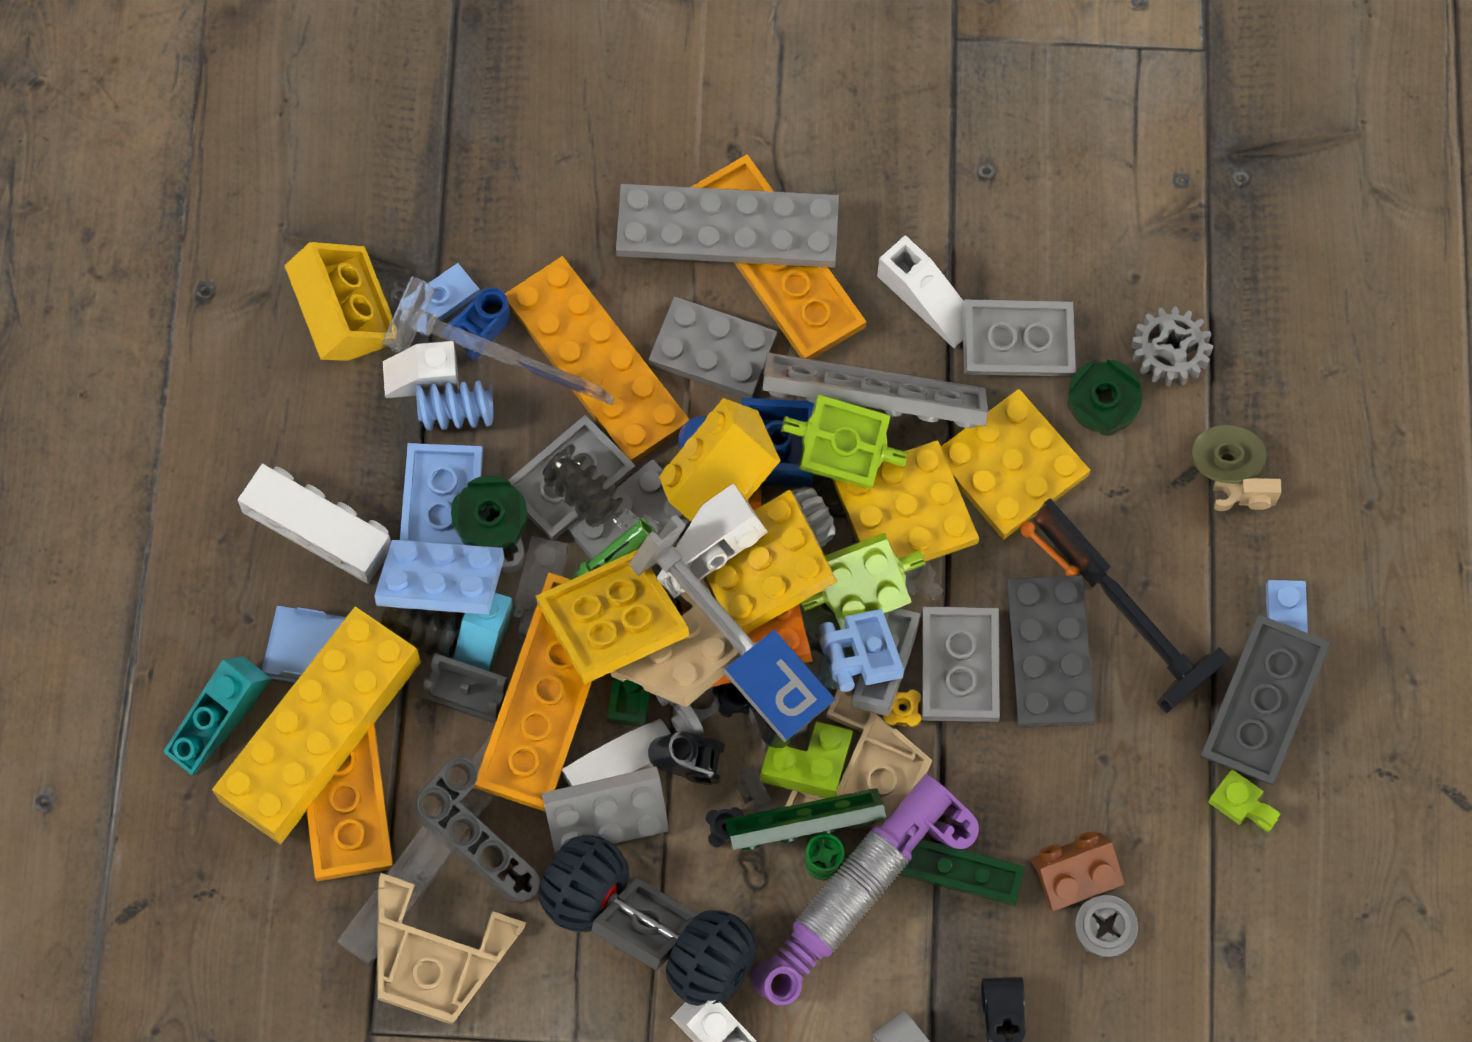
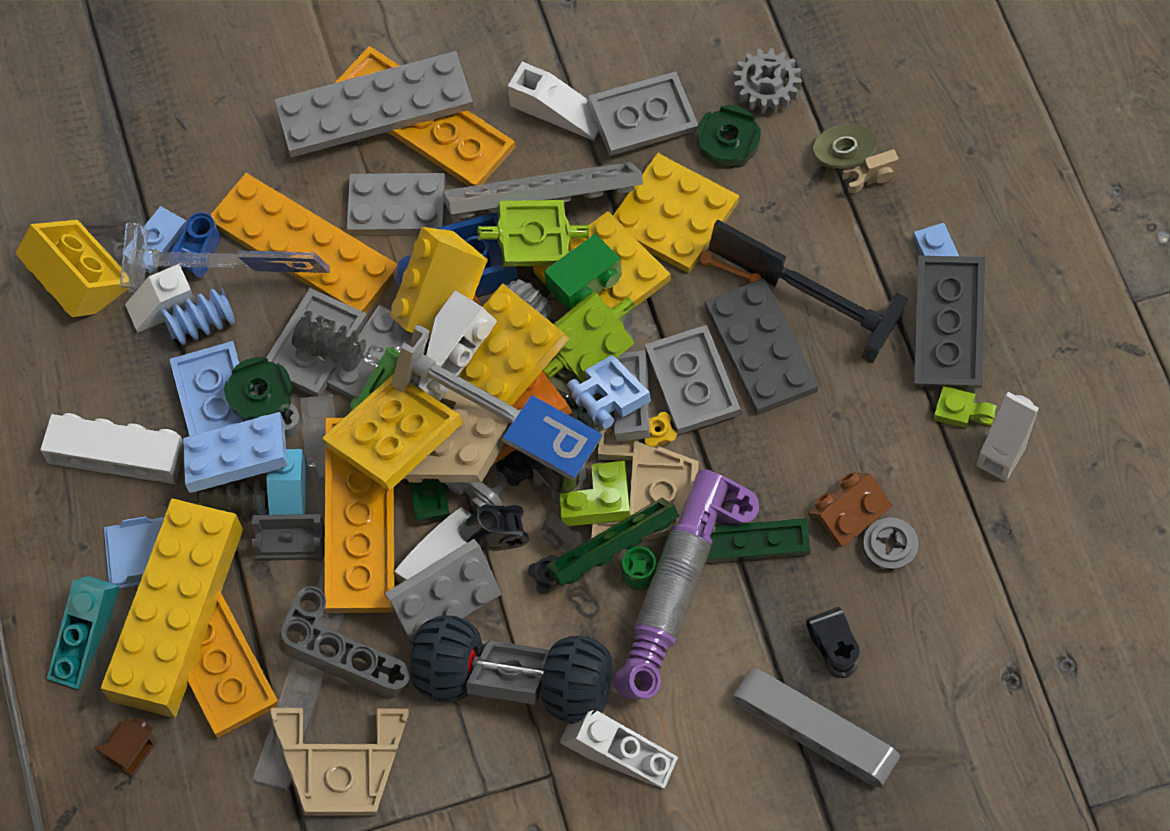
camera: 15 degrees left, 5 degrees down
(222, 856) = (128, 745): none -> reddish brown window
(882, 506) = (583, 270): none -> green brick
(1276, 856) = (1008, 436): none -> white slope

